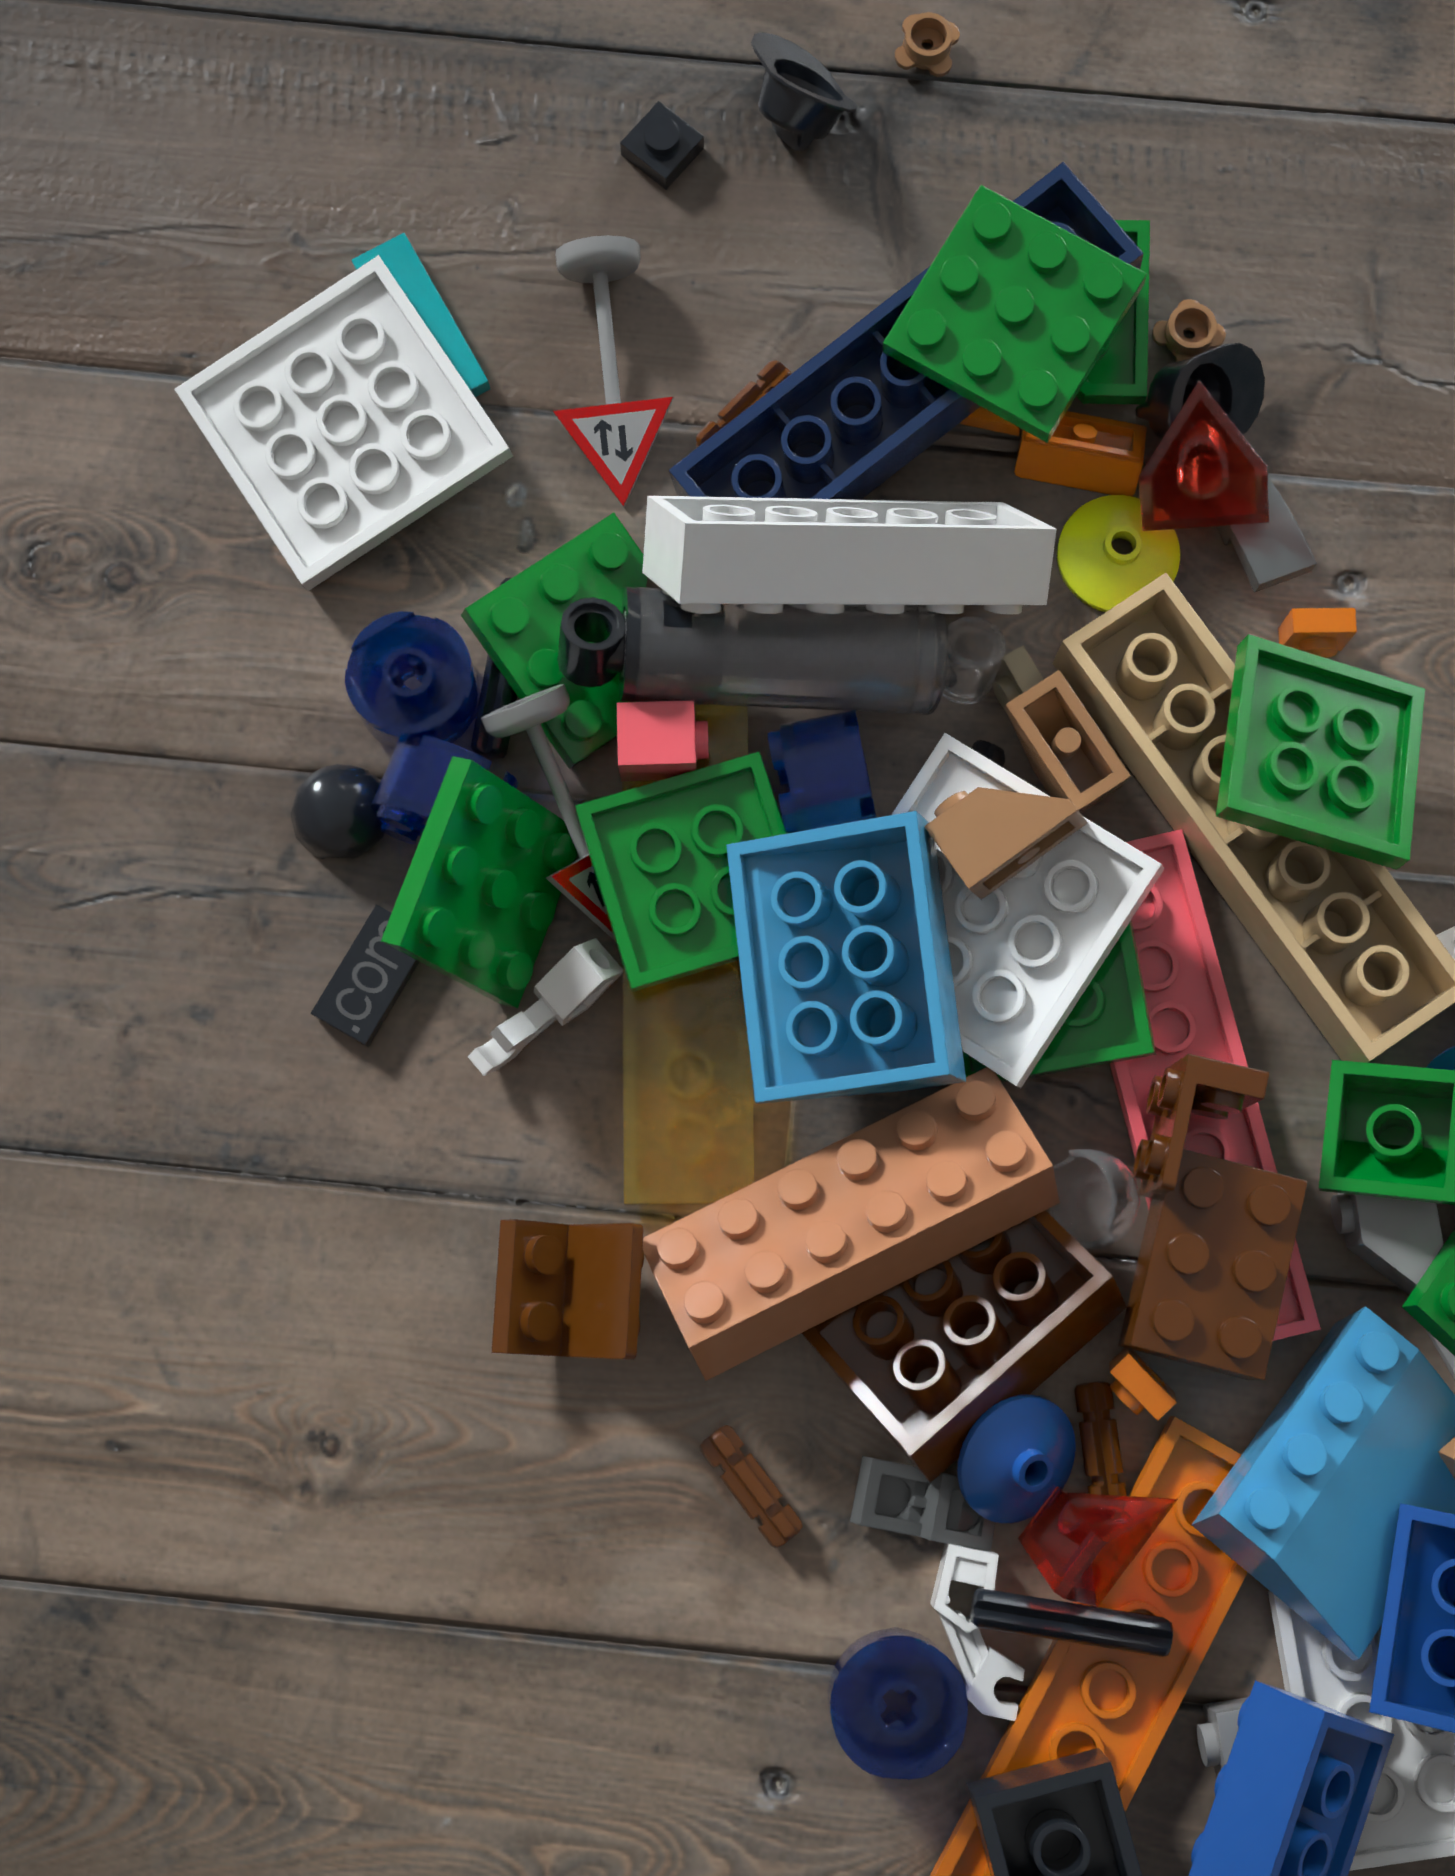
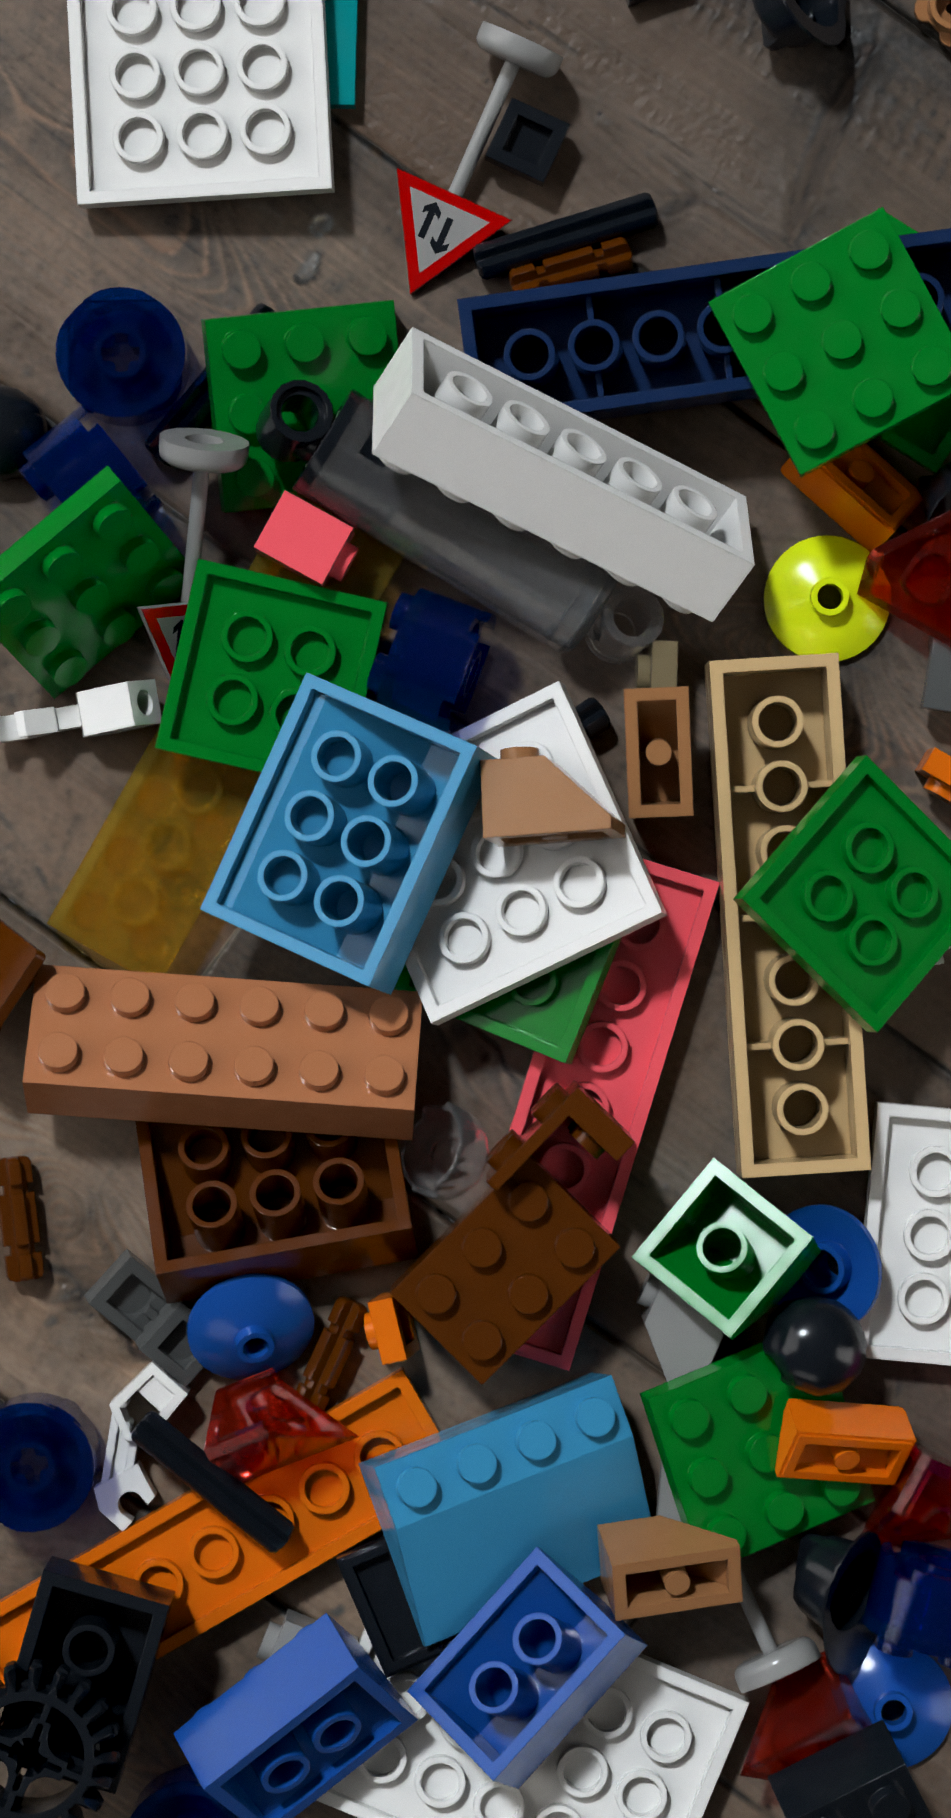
camera: 30 degrees right, 10 degrees up
(648, 330) = (527, 142): none -> black plate
(742, 366) = (565, 235): none -> black axle
(1295, 1646) = (384, 1607): none -> black tile

